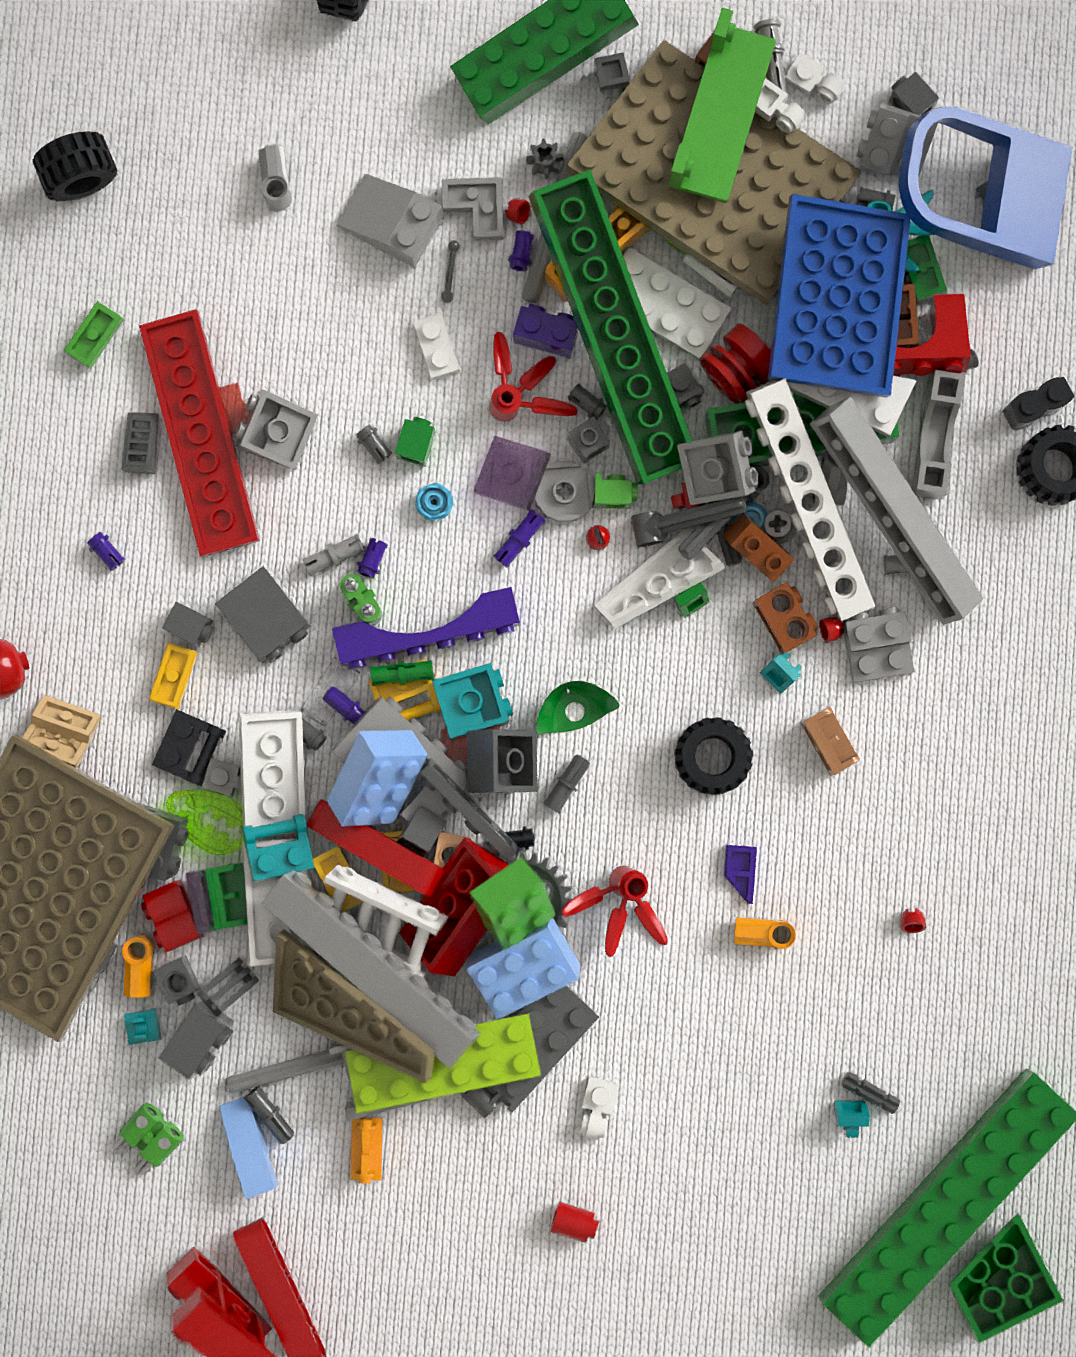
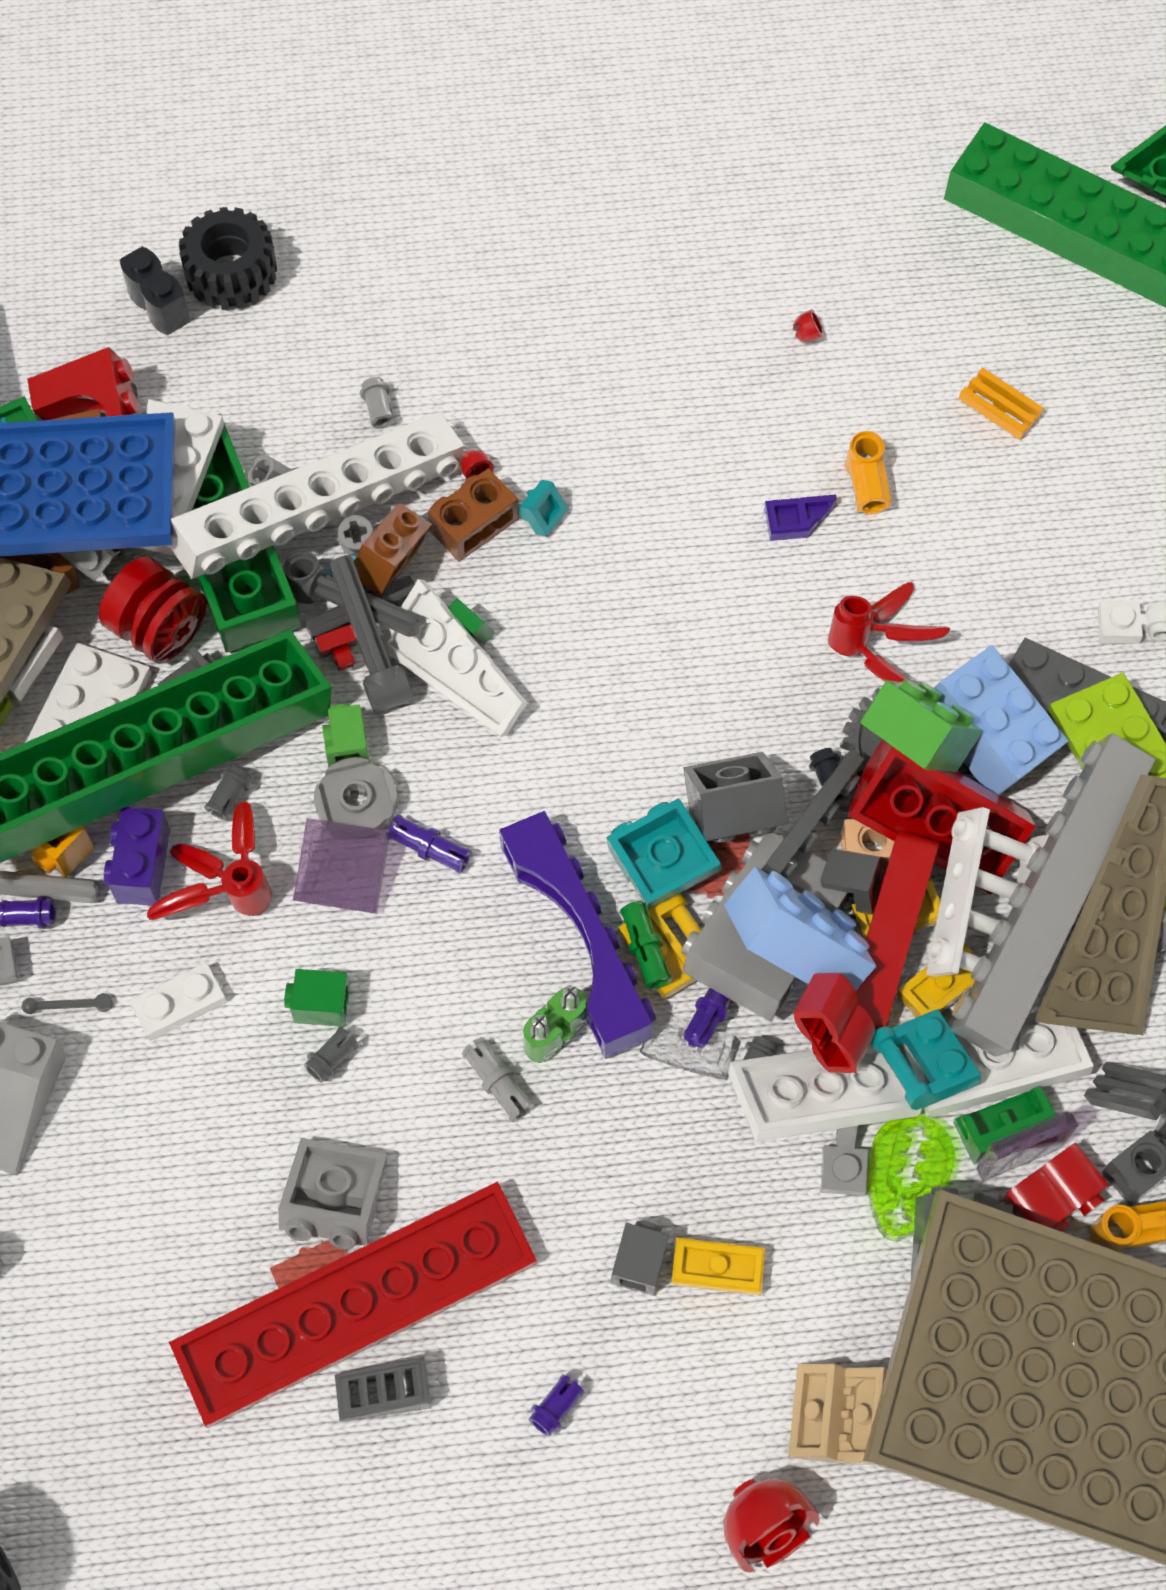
camera: 105 degrees left, 20 degrees down
(93, 335) = (228, 1497): bright green plate -> none
(179, 744) = (813, 1239): black plate -> none
(263, 616) = (603, 1153): dark grey panel -> none
(308, 787) = (834, 1022): none -> red brick
(372, 557) = (494, 1026): dark purple pin -> none
(434, 492) = (396, 947): medium azure plate -> none
(567, 783) = (741, 727): dark grey axle -> none
(588, 440) = (281, 777): dark grey brick -> none
(591, 538) = (413, 754): red hinge -> none
(594, 699) = (626, 716): green piece -> none
(717, 468) = (297, 596): light grey plate -> none
(740, 756) = (671, 534): black tyre -> none
(830, 741) = (617, 445): medium nougat hinge -> none
(834, 1042) = (1005, 400): none -> light orange tile
(851, 1116) = (1056, 349): teal tile -> none
(870, 1092) = (1022, 339): dark grey axle -> none
(878, 645) = (485, 411): light grey plate -> none
(896, 511) = (313, 399): light grey brick -> none
(938, 420) = (253, 386): light grey arch -> none

